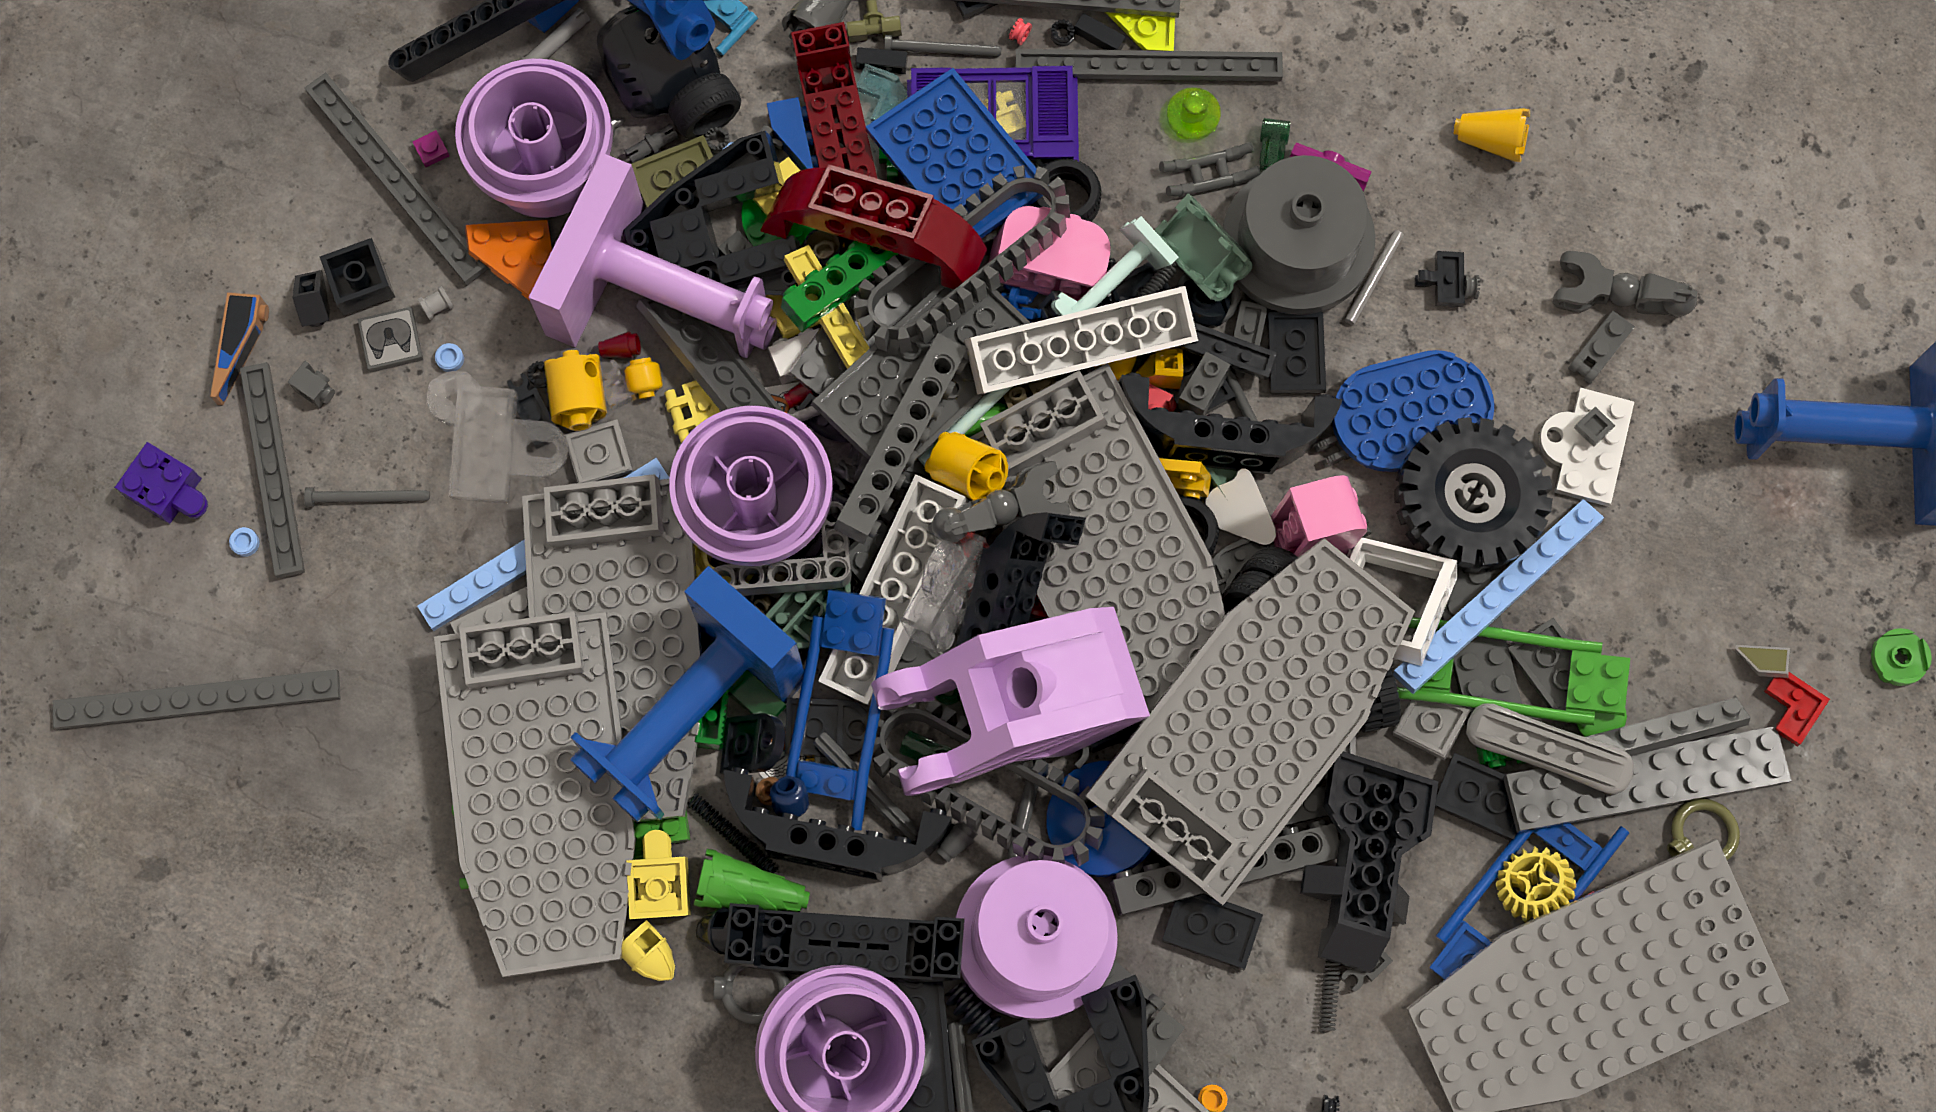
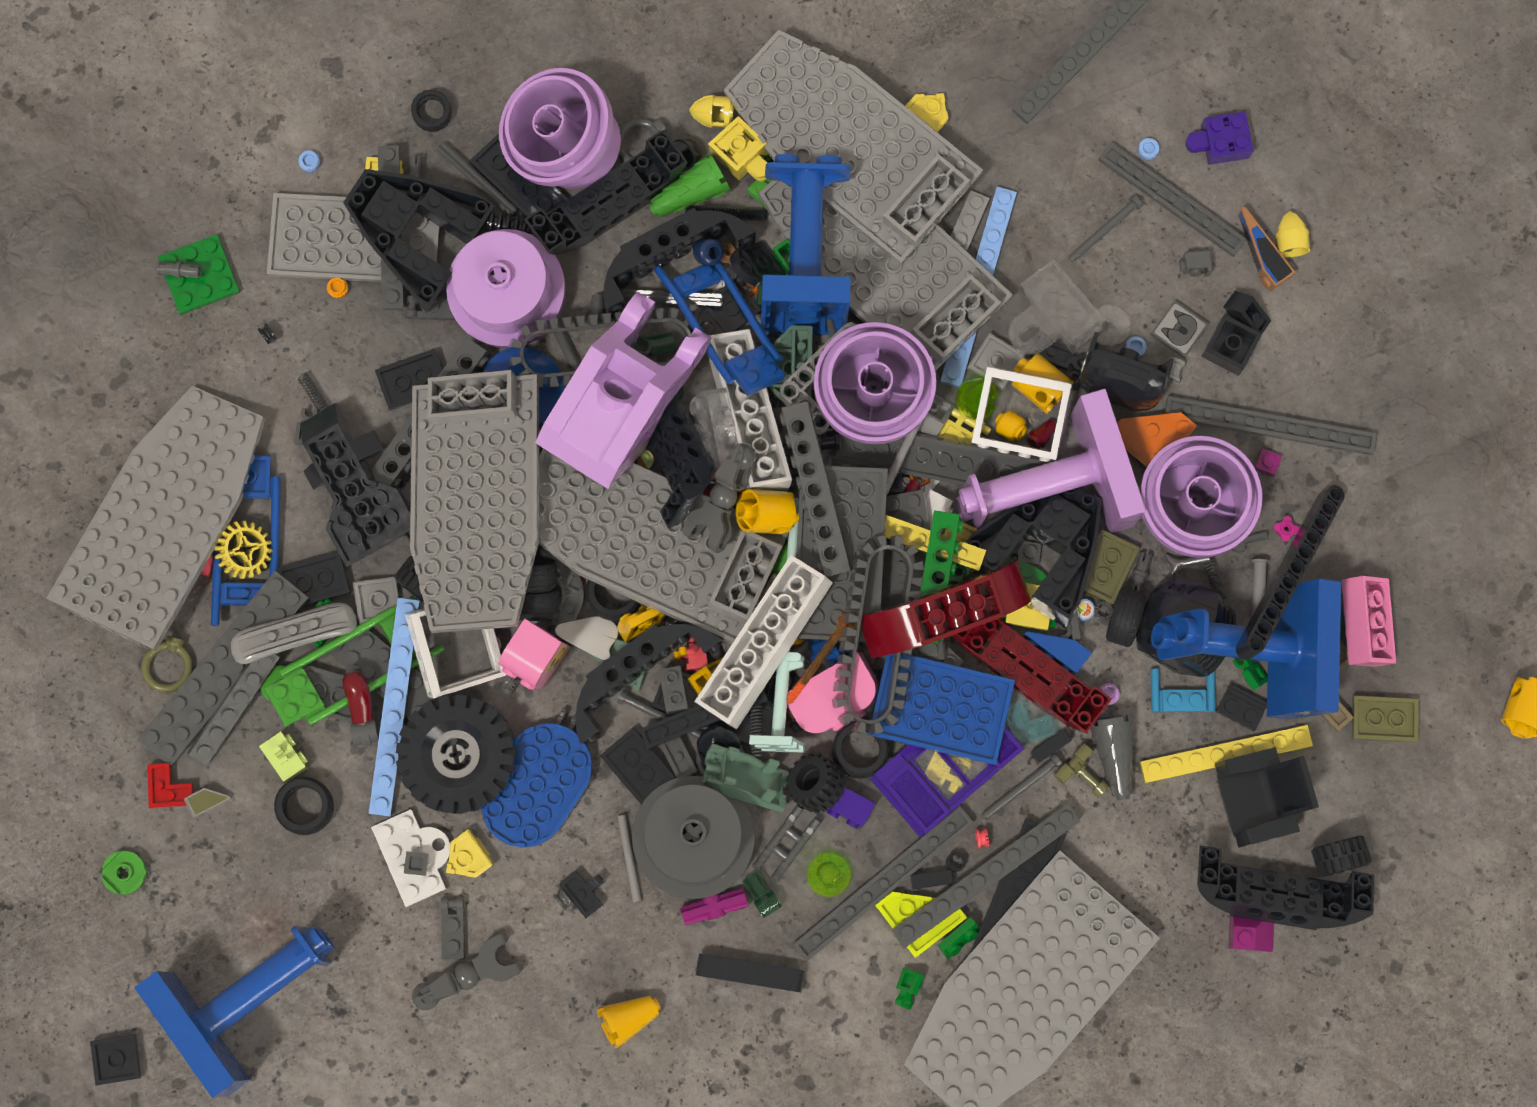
camera: 135 degrees right, 5 degrees up
(192, 333) = (1292, 235): none -> light yellow helmet
(426, 765) = (930, 109): none -> light yellow plate
(469, 69) = (1280, 528): none -> dark pink plate
(500, 310) = (1125, 378): none -> black piece
(591, 388) = (1024, 451): none -> white window
(654, 429) = (969, 397): none -> clear neon green cylinder
(783, 63) = (1112, 691): none -> lavender plate
(1038, 287) = (818, 659): none -> clear orange piece
(1121, 155) = (852, 808): none -> dark purple brick
(1127, 174) = (826, 790): none -> black tyre
(1344, 85) = (750, 973): none -> black beam
(1533, 399) = (468, 856): none -> light yellow plate
(1534, 622) = (360, 706): none -> dark red piece
(1649, 640) = (284, 757): none -> yellowish green brick
(1681, 552) = (283, 796): none -> black tyre

